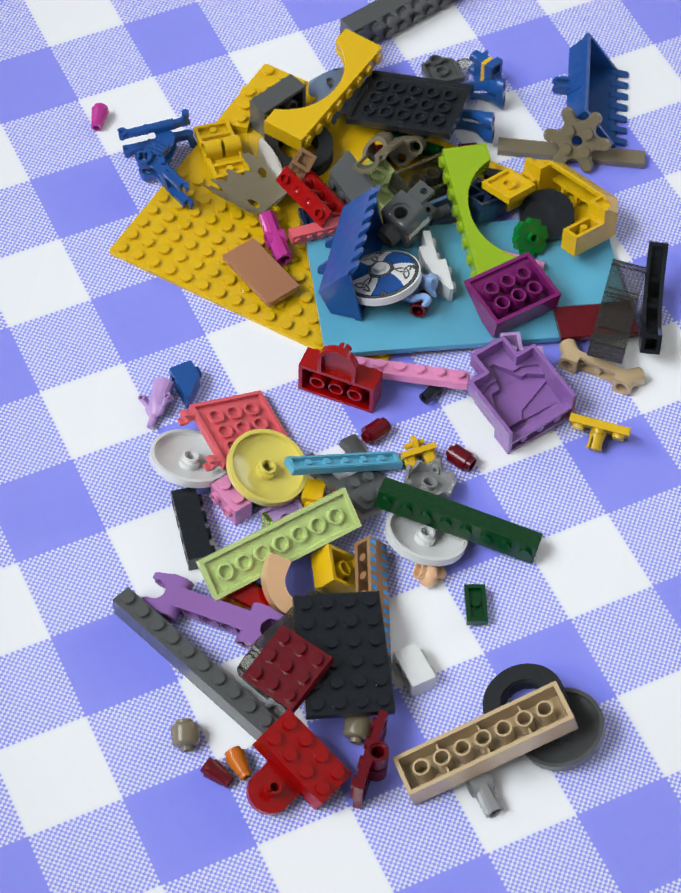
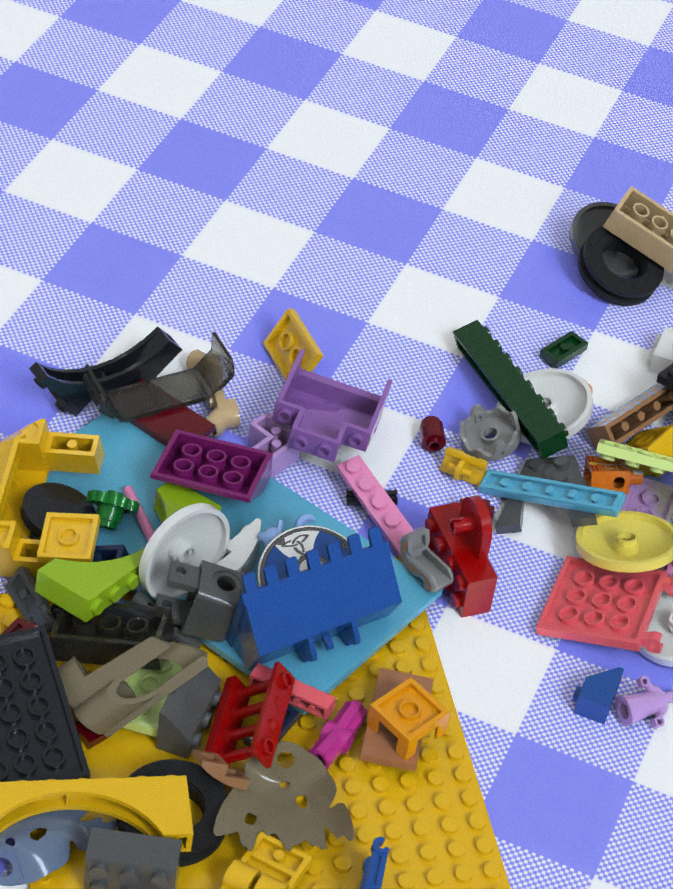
camera: 135 degrees left, 10 degrees down
(248, 255) = (409, 715): none -> light orange panel
(358, 345) = (423, 561): none -> light grey animal
(448, 220) = (186, 537): none -> white dish

